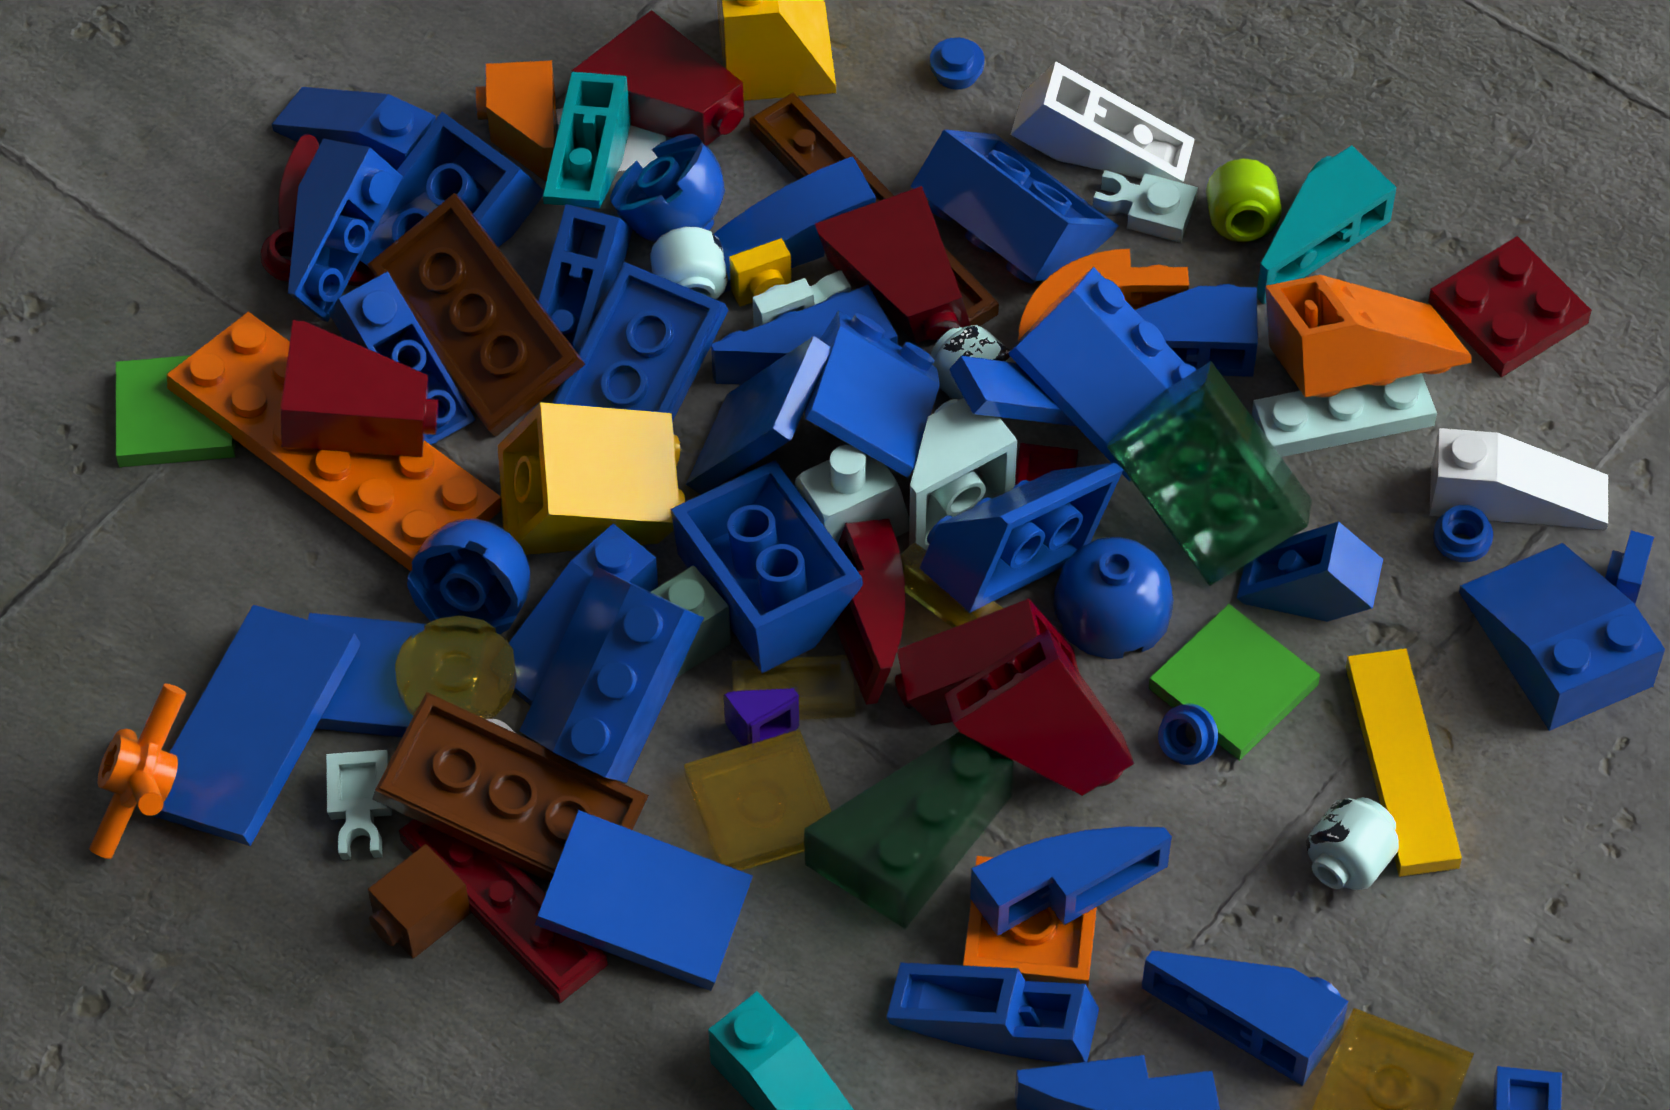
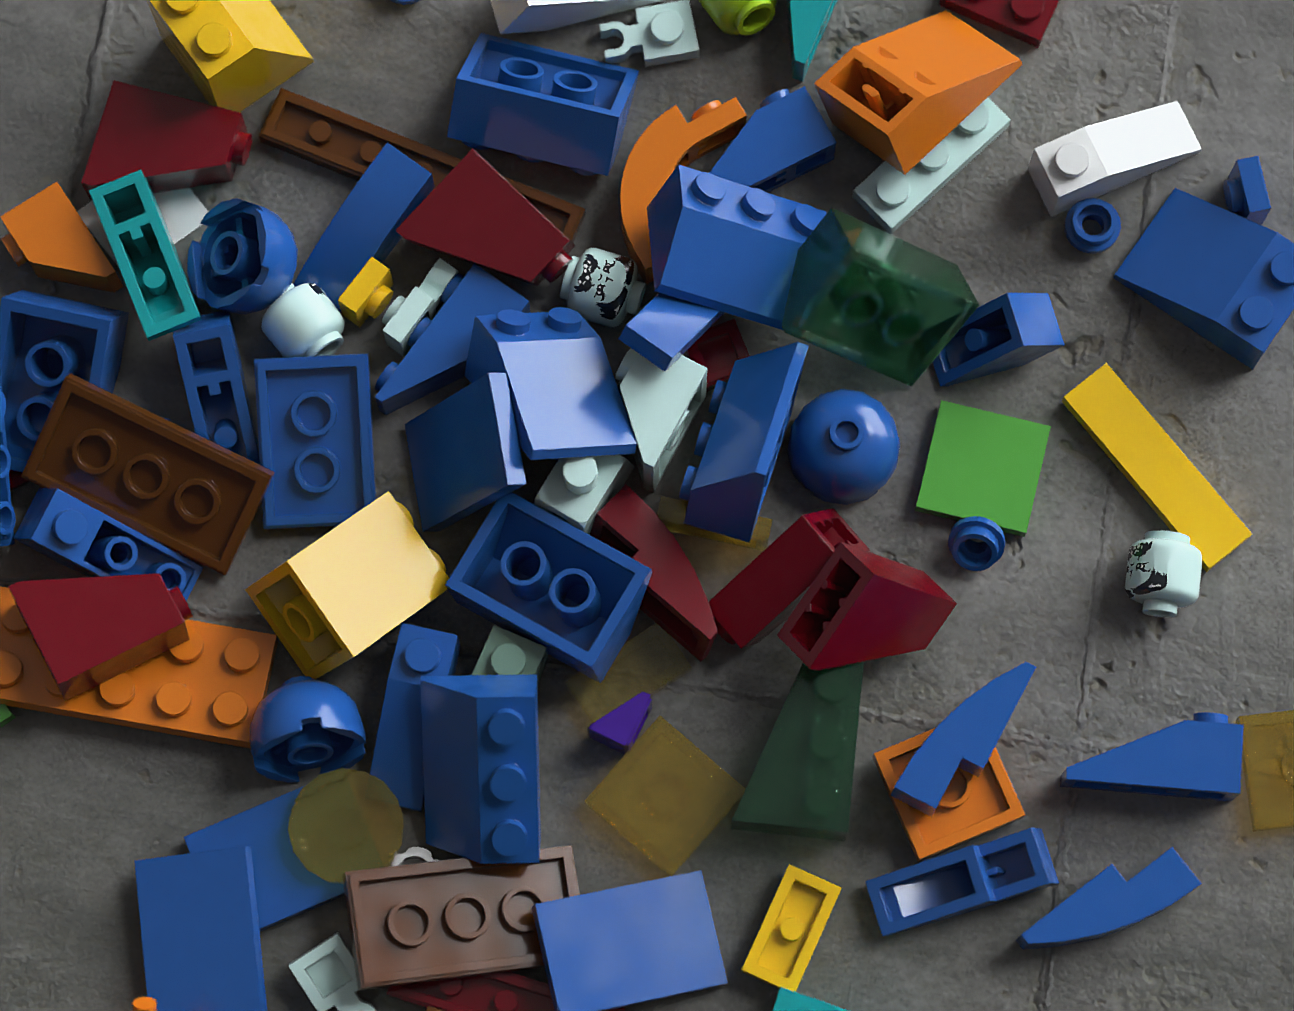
camera: 30 degrees left, 20 degrees up
(806, 965) = (791, 929): none -> yellow plate

